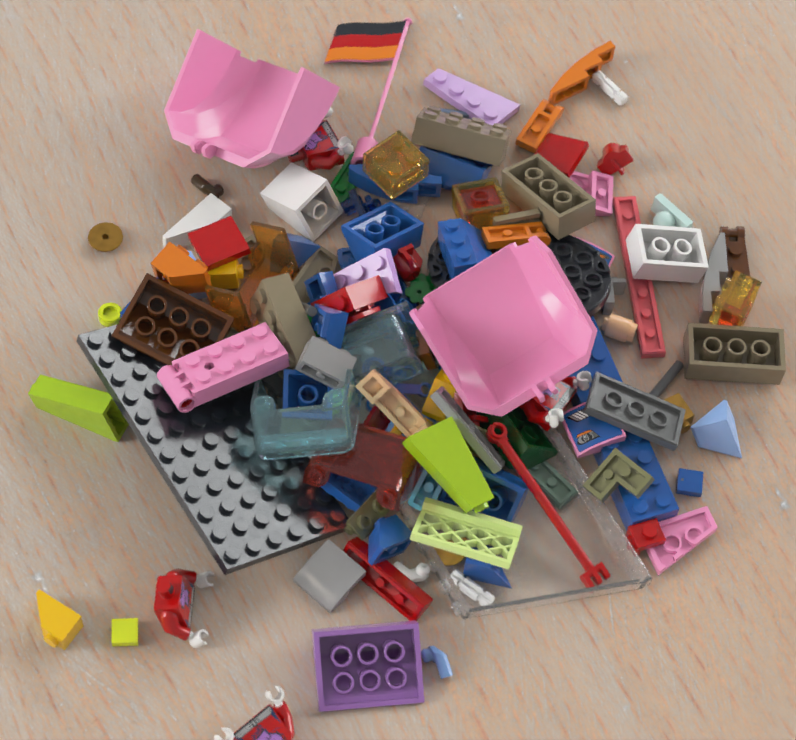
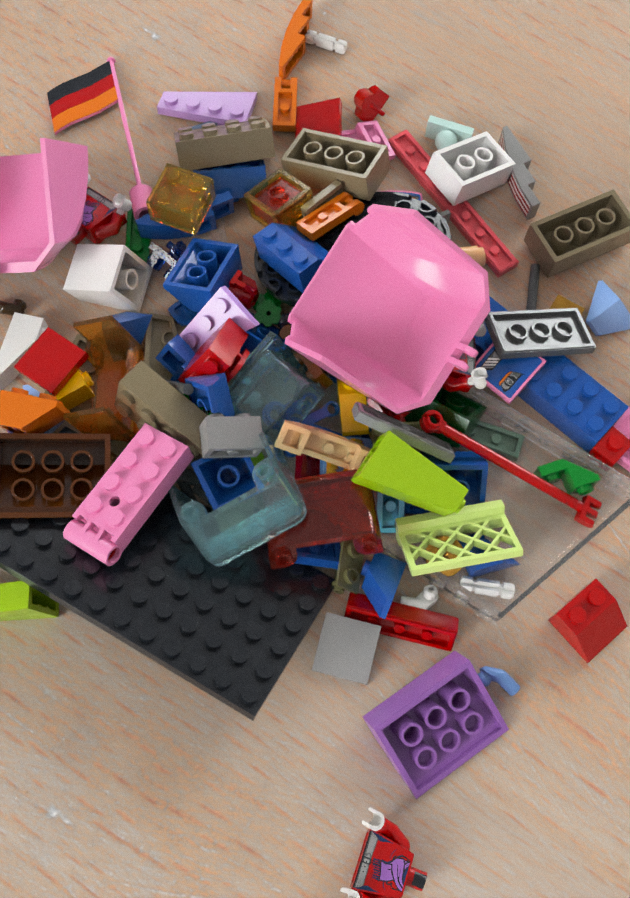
camera: 25 degrees left, 10 degrees up
(57, 621) = (99, 858): yellow slope -> none
(124, 632) = (176, 825): neon yellow tile -> none
(175, 603) = (213, 768): red torso -> none
(541, 656) = (590, 620): none -> red slope
(600, 546) = (573, 476): none -> green slope
(617, 471) = (563, 398): olive plate -> none
(689, 482) = (611, 374): blue tile -> none
(735, 300) = (556, 184): clear yellow piece -> none
(736, 250) = (536, 154): reddish brown plate -> none

